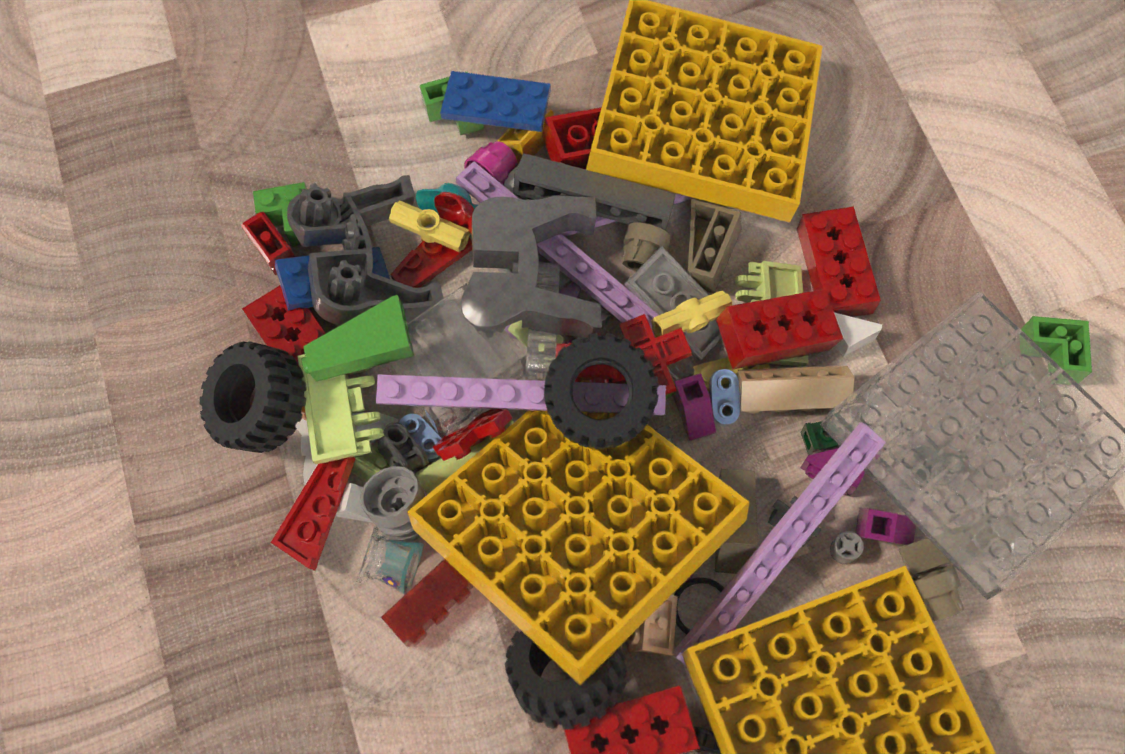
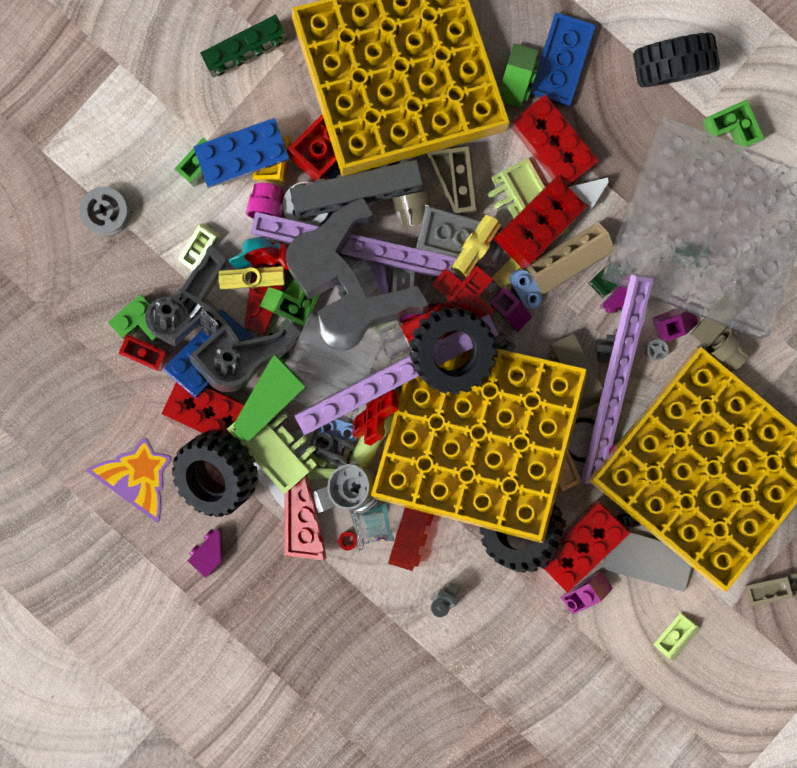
camera: 30 degrees left, 20 degrees up
(171, 369) = (135, 477): none -> sticker
(190, 491) = (209, 554): none -> magenta slope
(323, 85) = (99, 195): none -> light grey wheel
(345, 563) = (348, 547): none -> red bush
(400, 166) = (202, 228): none -> yellowish green slope
(420, 702) = (444, 600): none -> dark grey hips
(448, 269) = (291, 304): none -> bright green brick
(561, 21) = (244, 46): none -> dark green brick
(831, 175) = (518, 73): none -> bright green brick
(891, 190) = (562, 59): none -> blue plate
(1023, 236) = (676, 59): none -> black tyre

